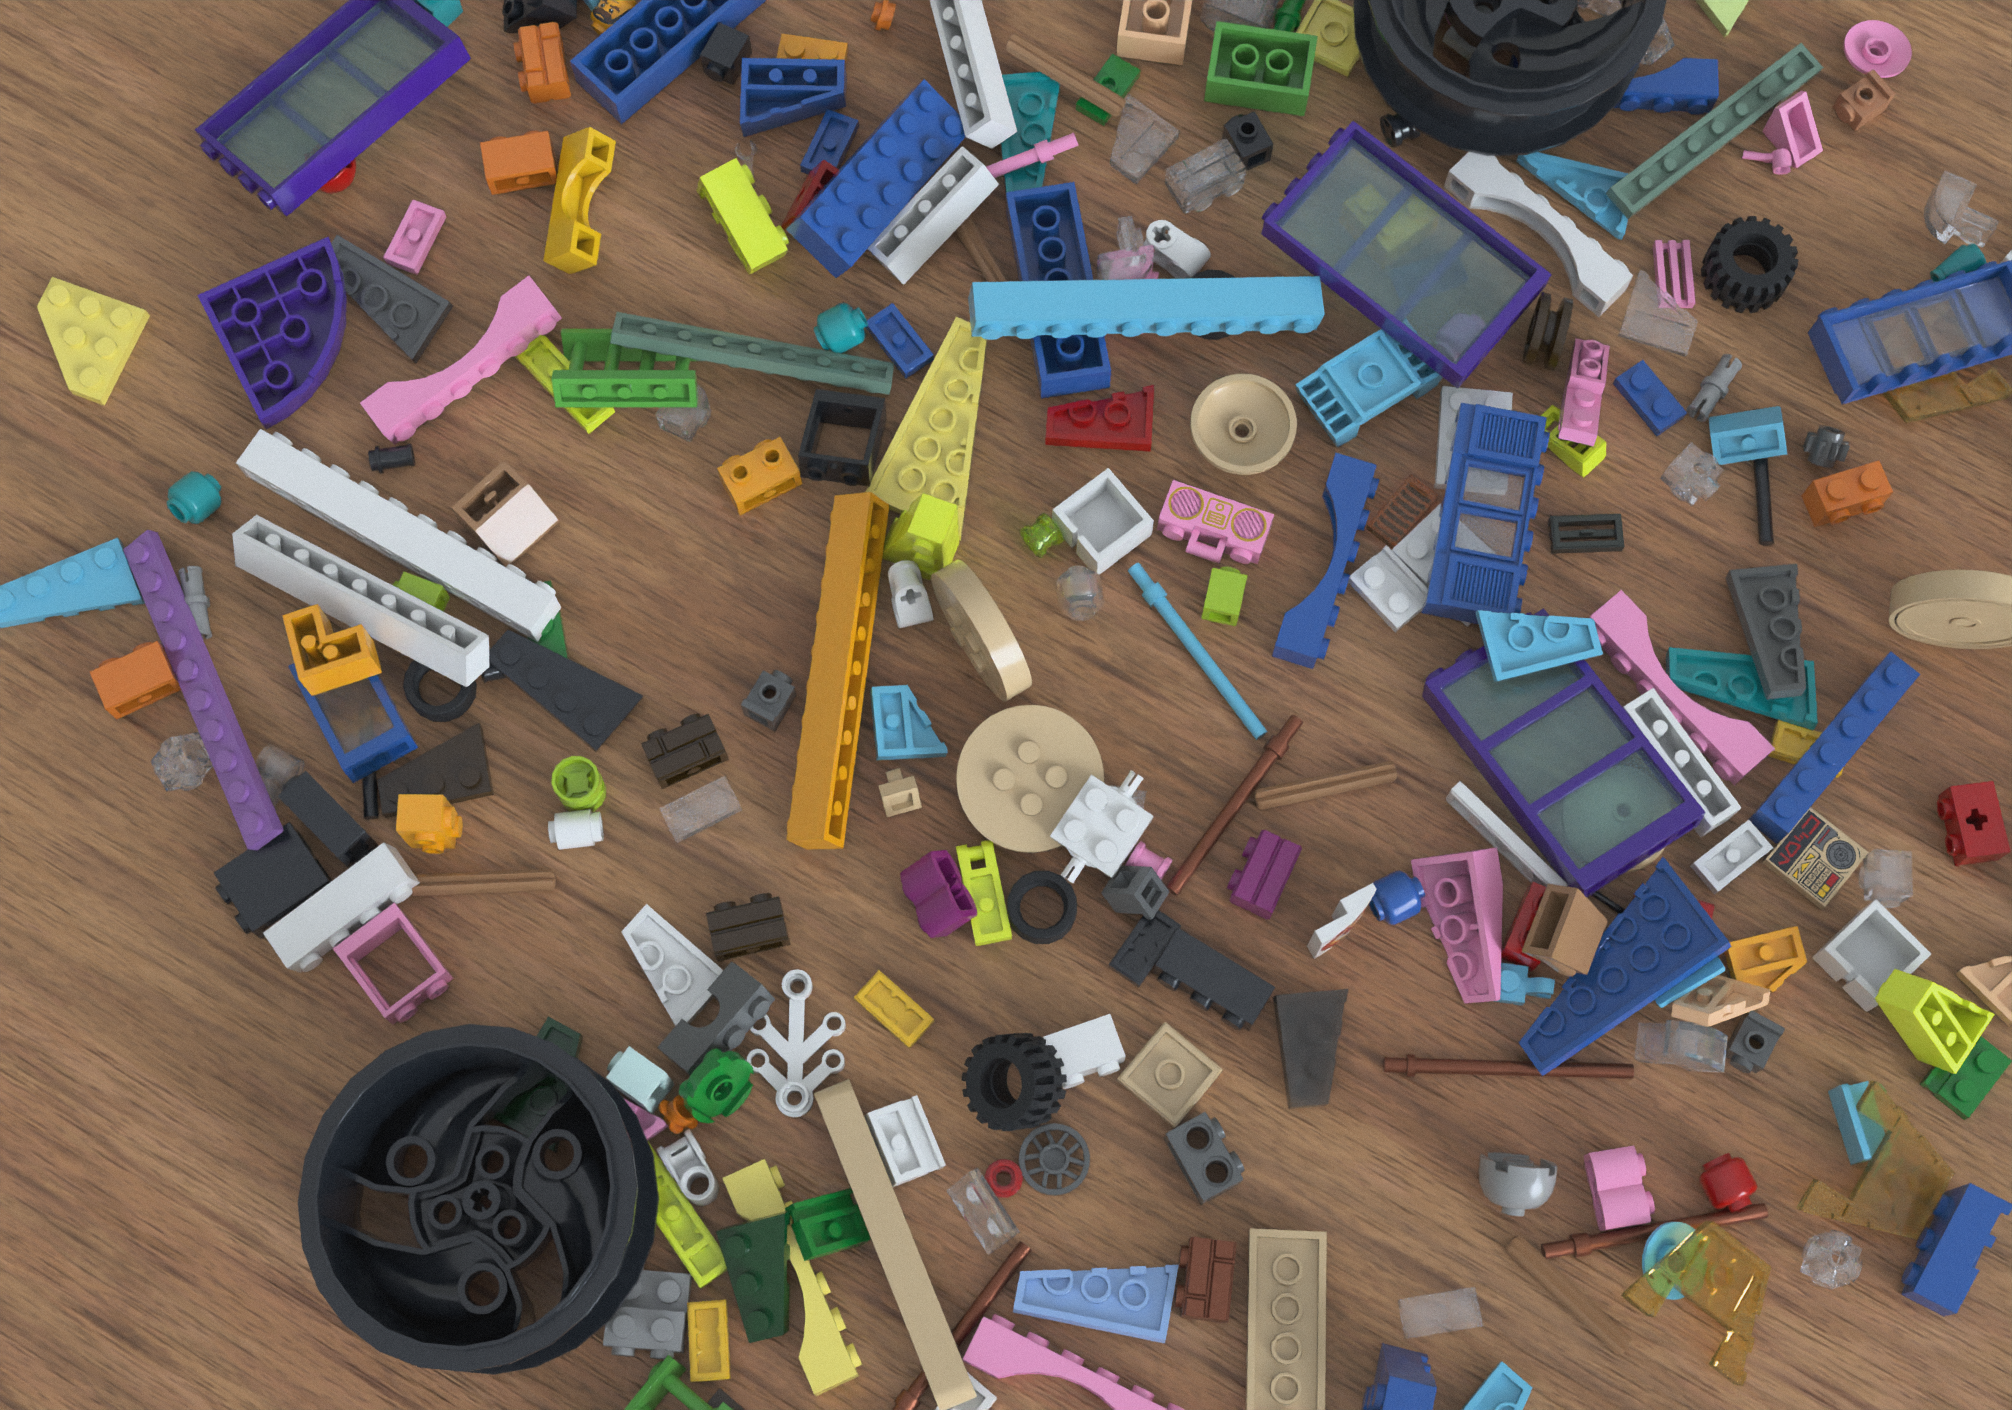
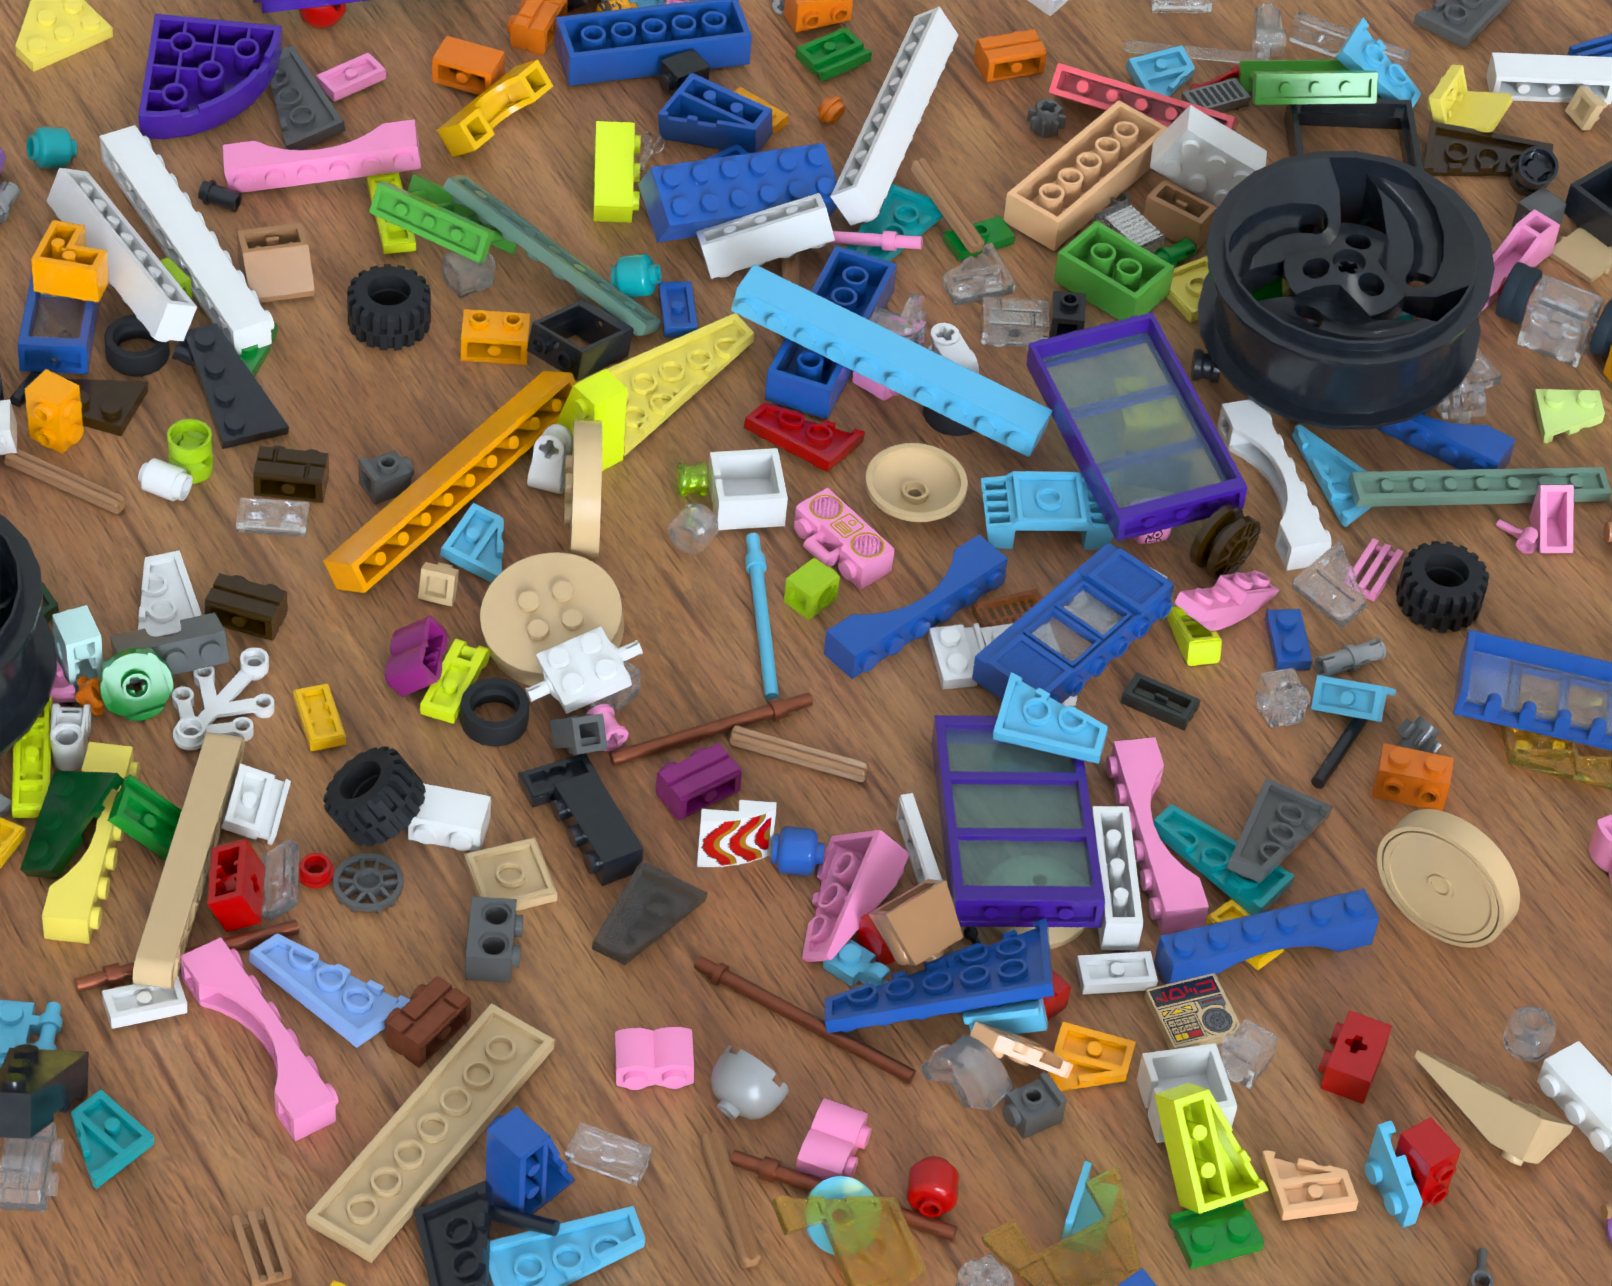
camera: 25 degrees right, 25 degrees down
(638, 476) = (389, 307): none -> black tyre
(955, 1248) = (236, 885): none -> red brick
(1418, 1195) = (654, 1057): none -> bright pink brick

